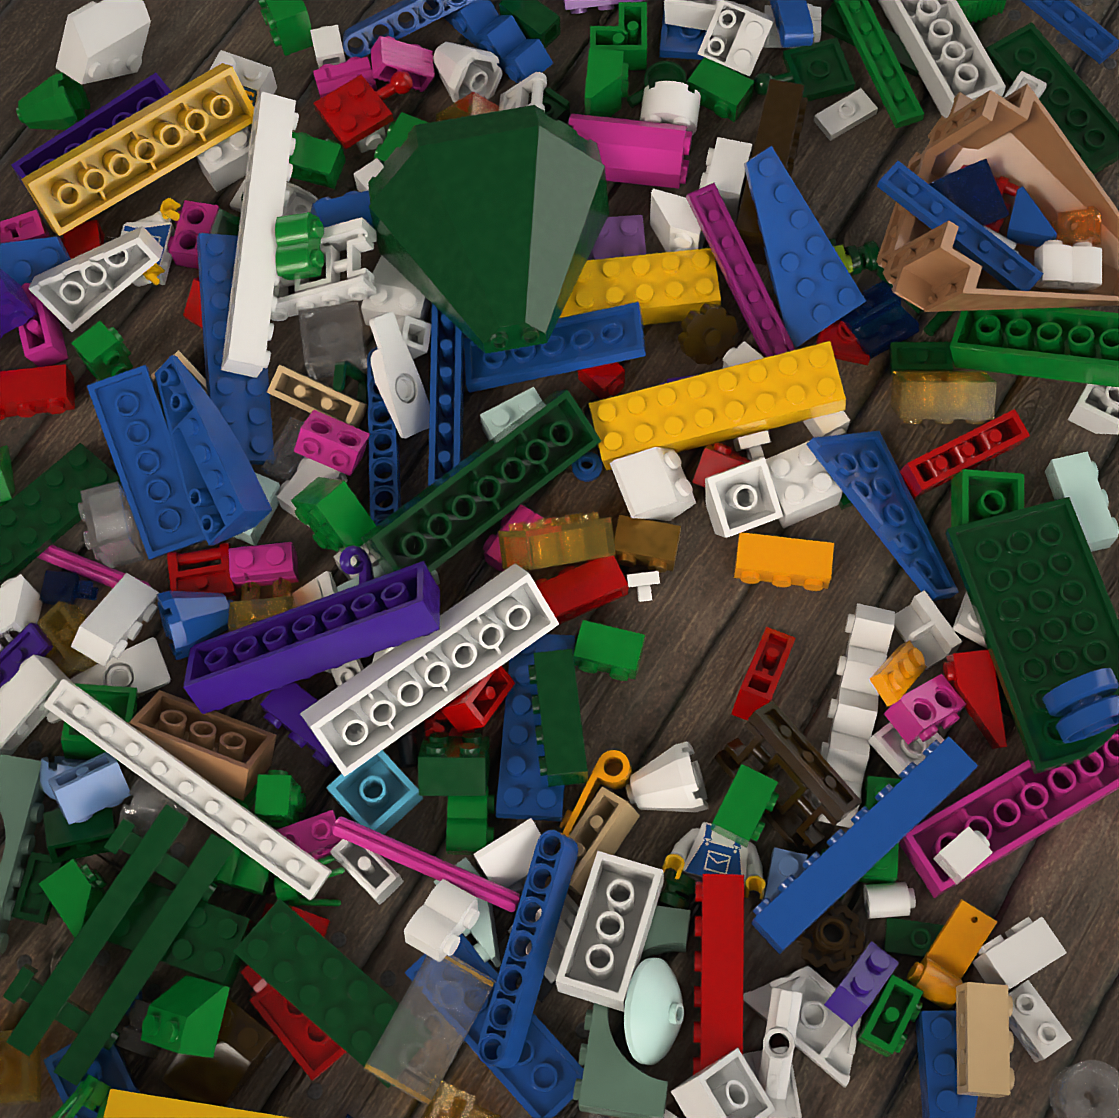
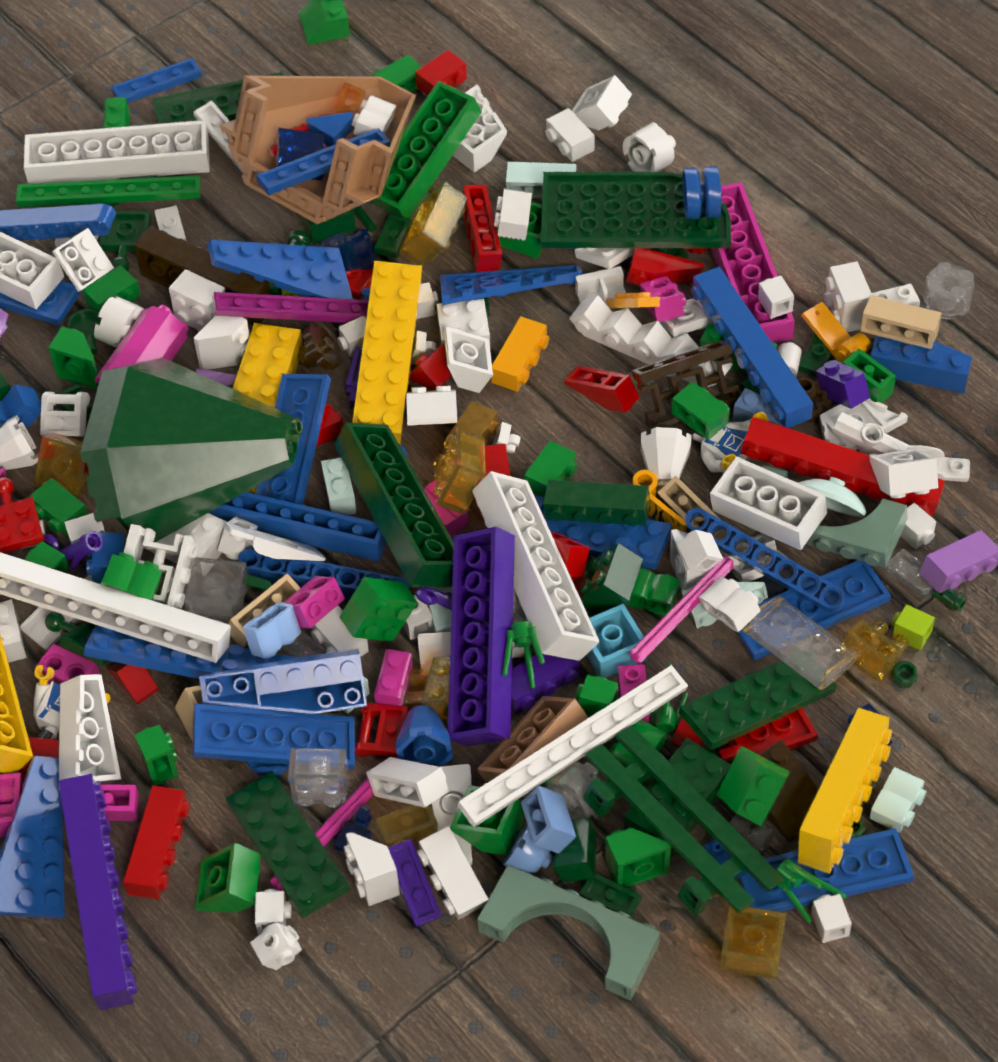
camera: 75 degrees left, 15 degrees down
(275, 411) = (272, 630): none -> light blue brick
(317, 683) = (522, 634): none -> green plant
(338, 186) = (85, 545): none -> dark purple plant
(367, 869) = (676, 650): white brick -> none
(504, 861) = (700, 551): none -> white brick
(627, 36) = (34, 334): green brick -> none
(979, 481) = (514, 214): none -> white brick

